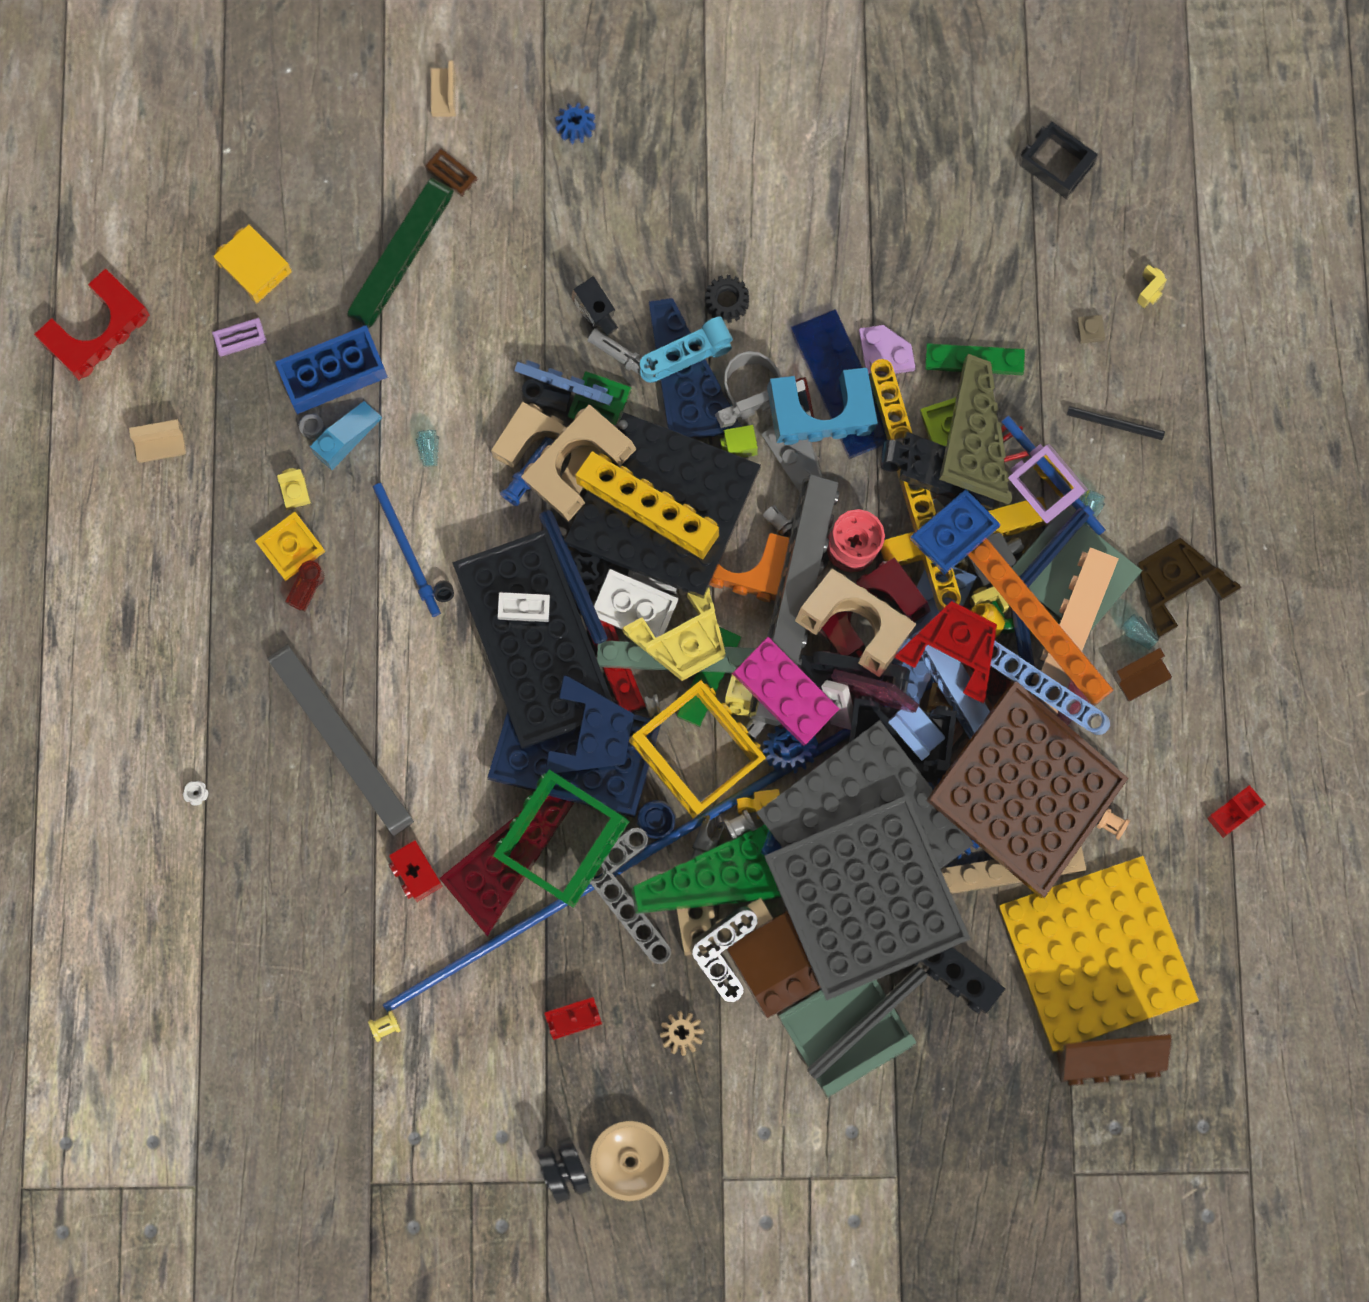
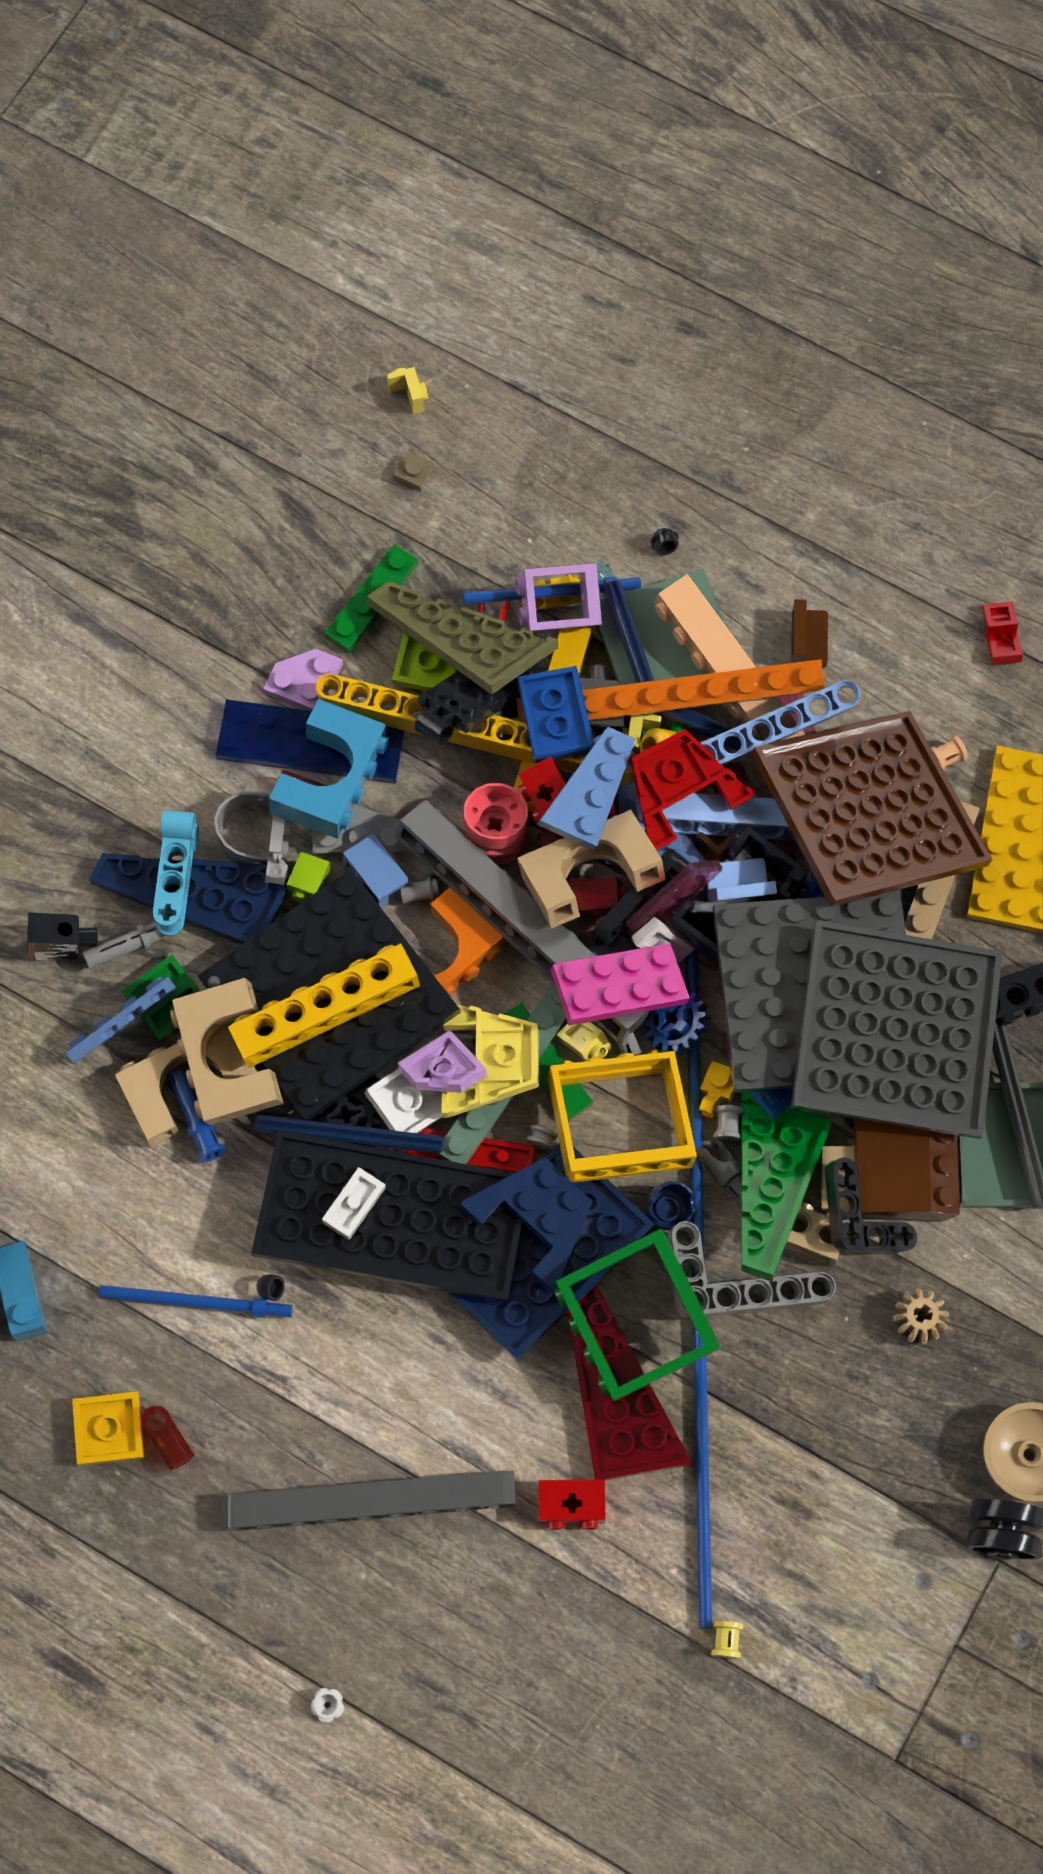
camera: 65 degrees left, 5 degrees down
(293, 488) = (43, 1386): light yellow bracket -> none
(428, 446) = (95, 1209): clear light blue cone -> none
(548, 397) = (124, 1047): black piece -> none
(573, 1018) = (837, 1424): red hinge -> none
(656, 609) = (443, 1066): none -> lavender plate
(733, 286) = (135, 783): black tyre -> none
(773, 482) = (375, 869): none -> medium blue panel
(892, 576) = (537, 782): none -> red brick
(903, 588) = (587, 797): none -> medium blue wing
(1068, 142) = (207, 373): black window -> none
(1115, 423) = (527, 507): black bar -> none
(1139, 631) = (762, 611): clear light blue cone -> none
(1150, 532) = (665, 541): none -> black plate
(1174, 572) = (721, 545): dark brown wing -> none

